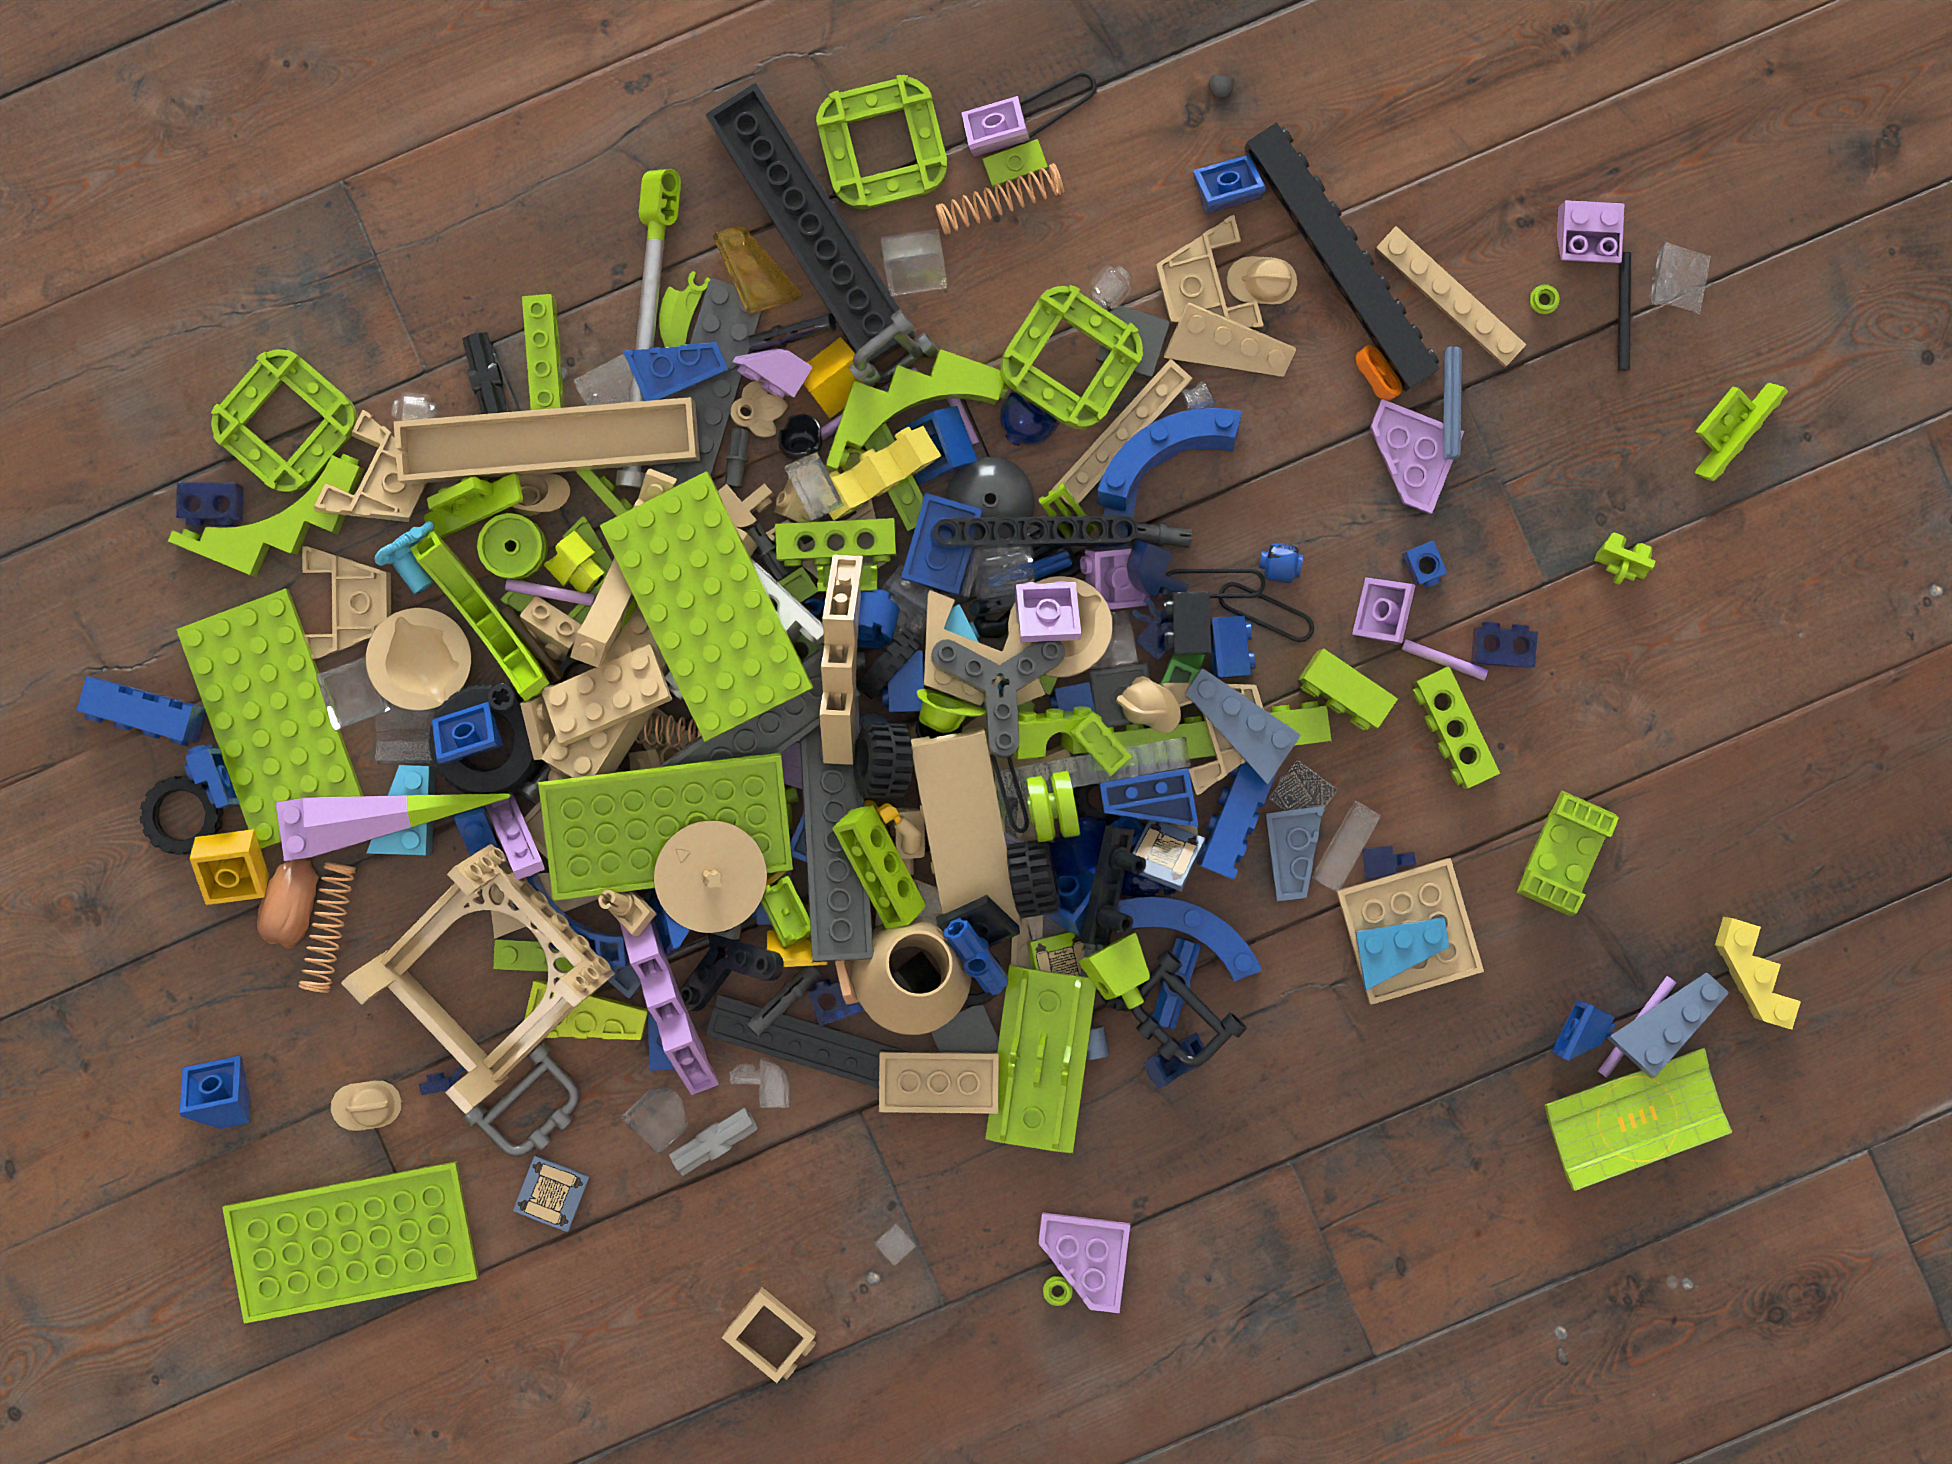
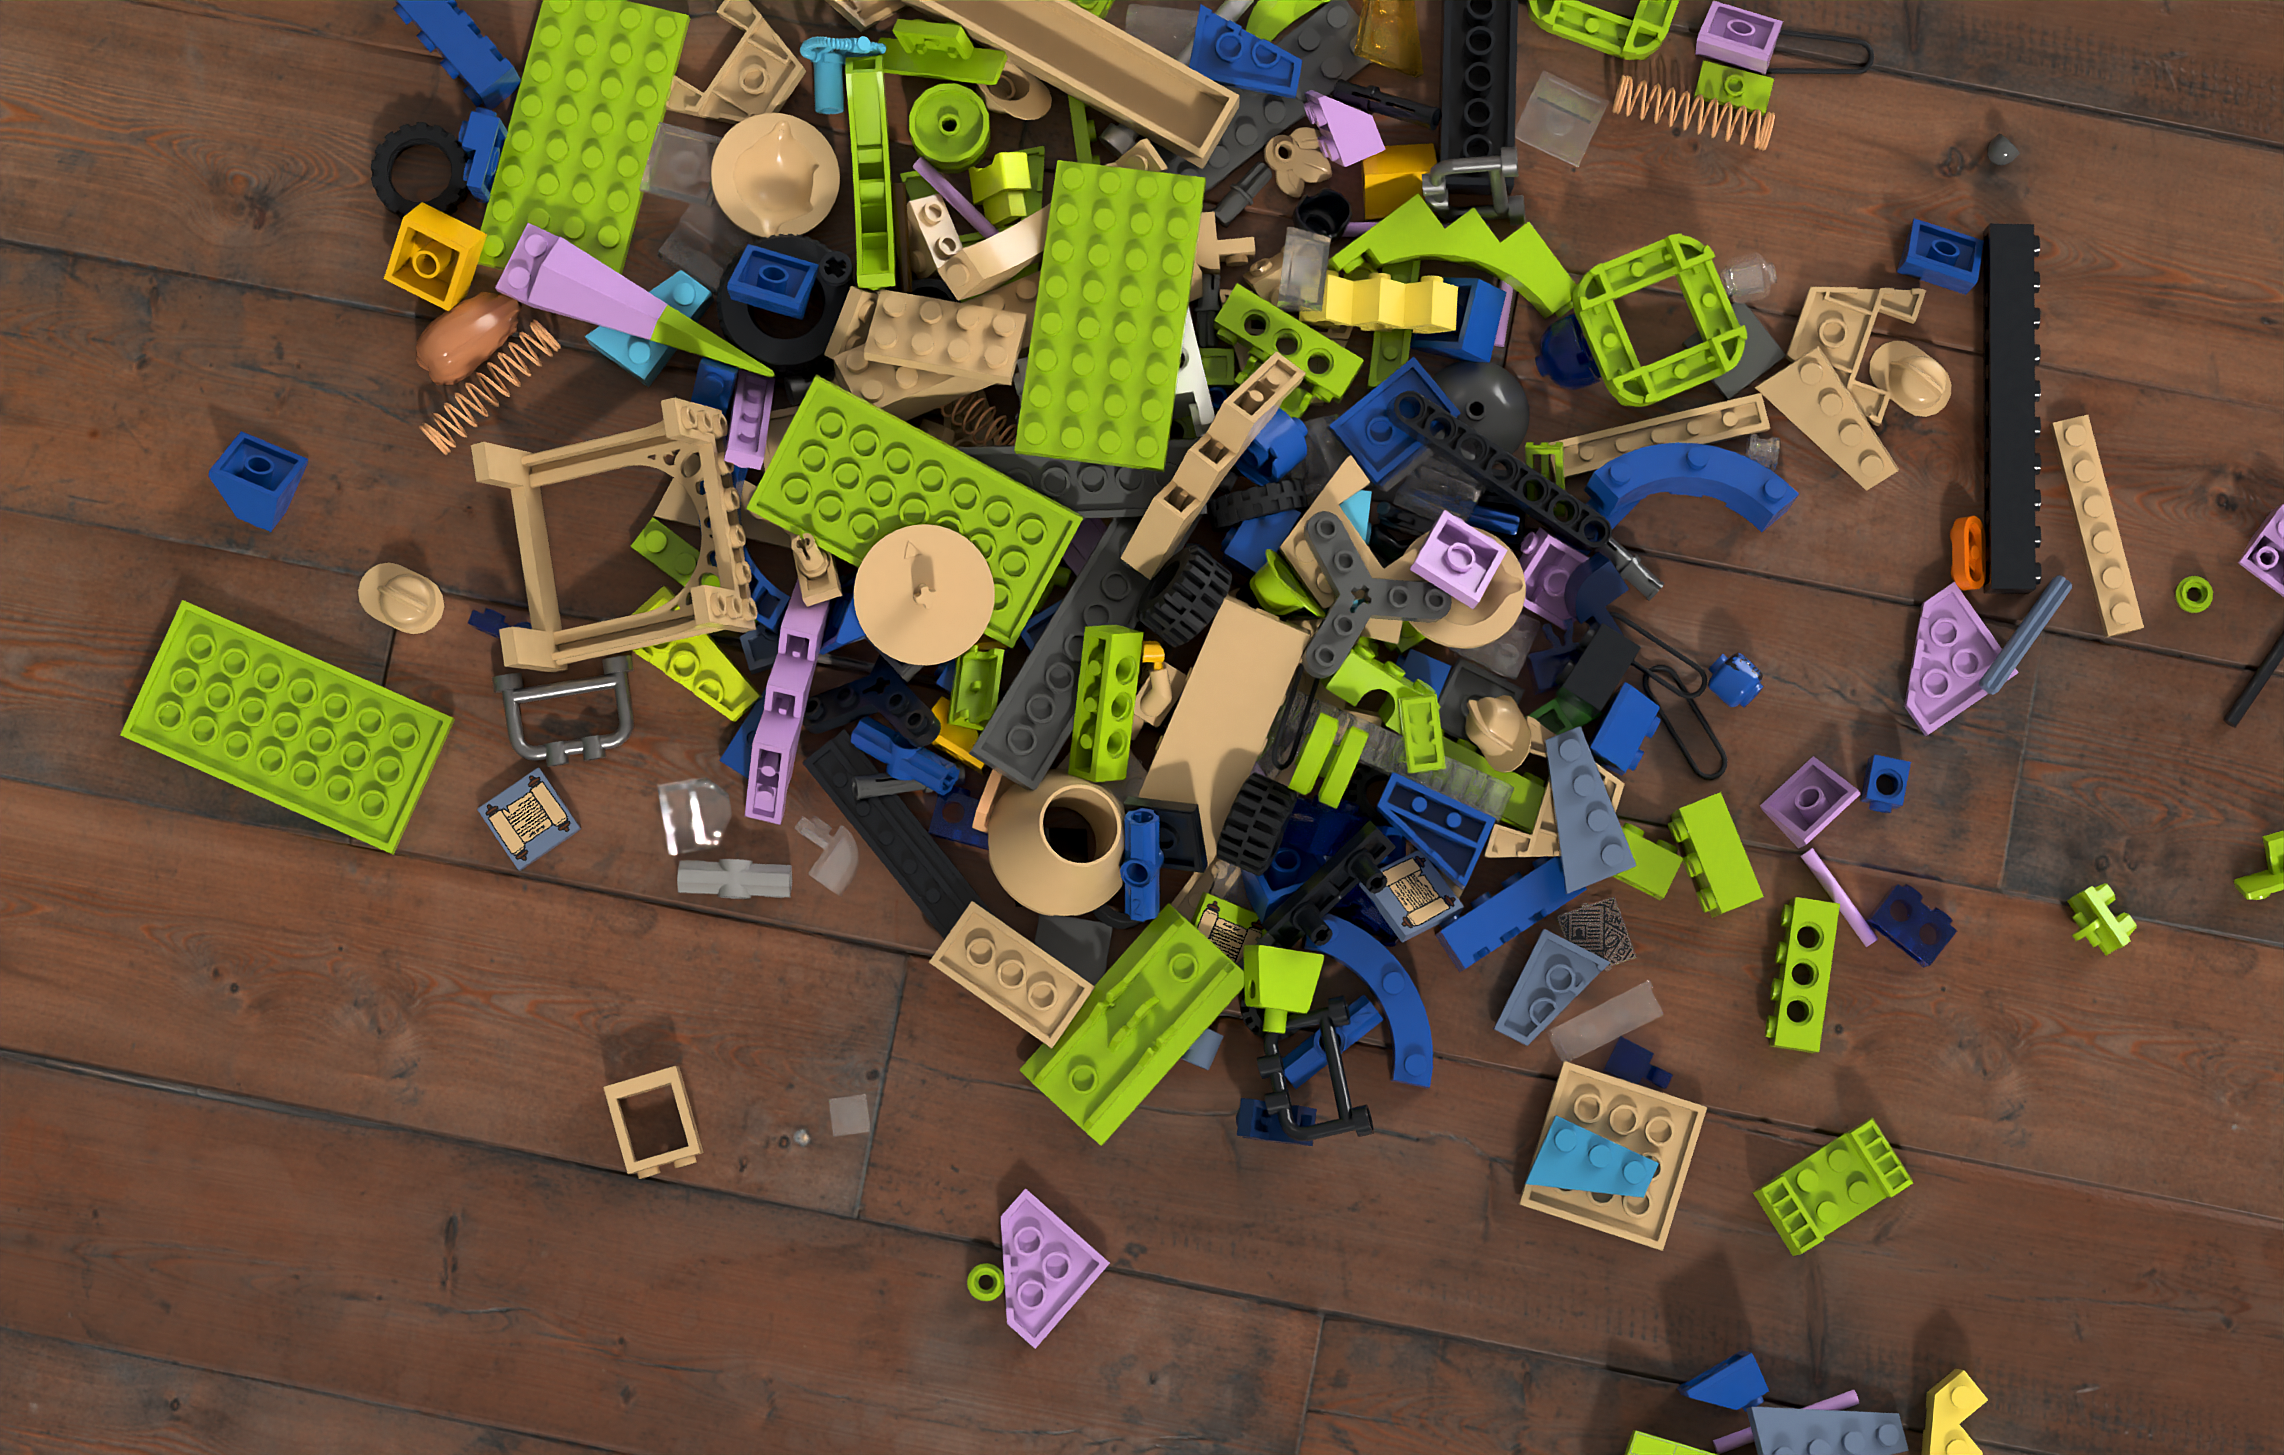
camera: 30 degrees right, 5 degrees down
(770, 992) = (904, 759): none -> blue piece

